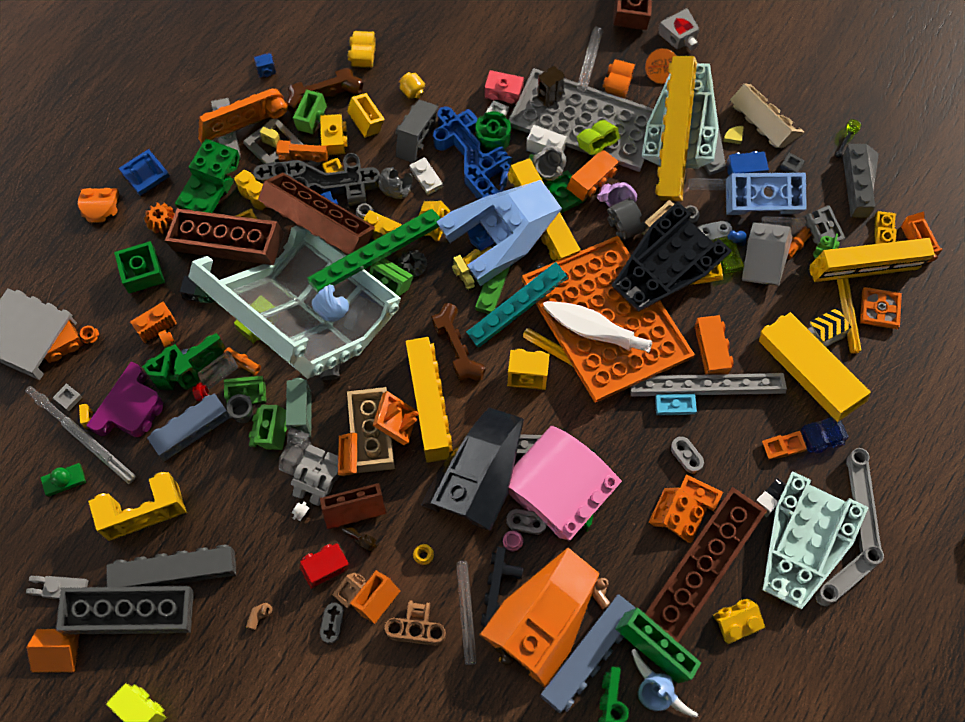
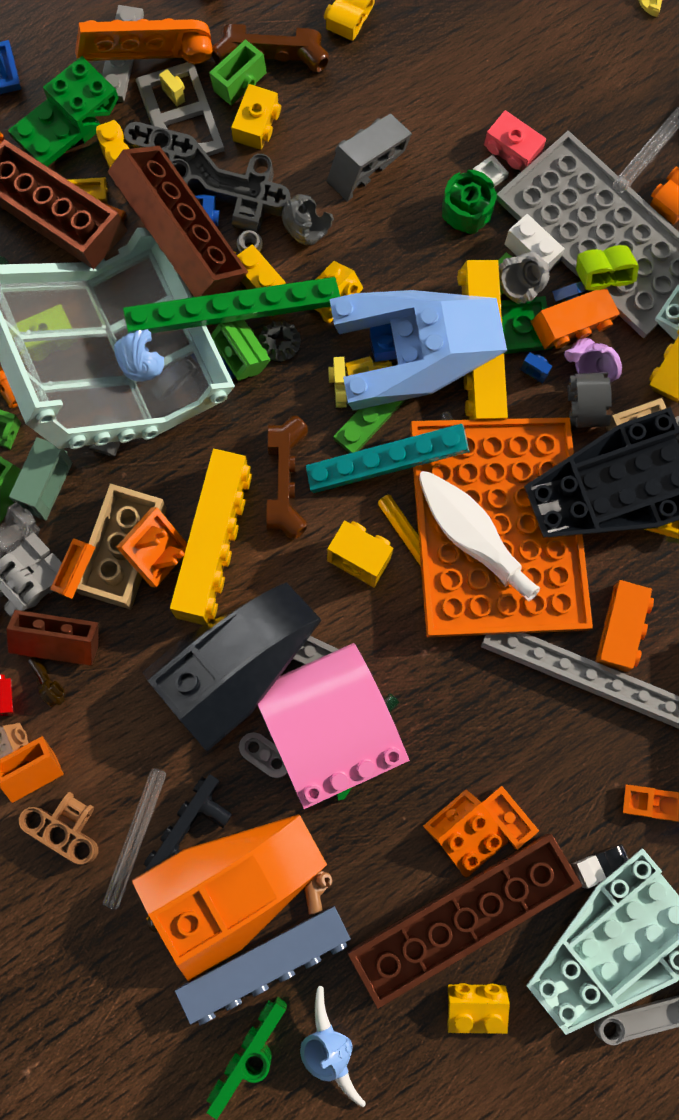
camera: 20 degrees right, 10 degrees up
(291, 152) = (200, 126): orange plate -> none
(332, 166) = (236, 162): yellow tile -> none
(365, 115) = (309, 106): yellow brick -> none
(412, 85) = (391, 89): yellow head -> none
(423, 548) = (107, 735): yellow plate -> none
(426, 176) = (353, 225): white plate -> none
(460, 133) = (424, 182): blue beam -> none
(512, 540) = (236, 771): bright pink plate -> none
(550, 86) = (575, 167): dark brown brick -> none
(582, 160) = (569, 292): none -> blue plate
(582, 214) = (536, 367): none -> blue plate
(658, 645) = (352, 999): green brick -> none
(675, 404) = (535, 684): medium azure plate -> none
(687, 455) = (517, 759): light grey plate -> none

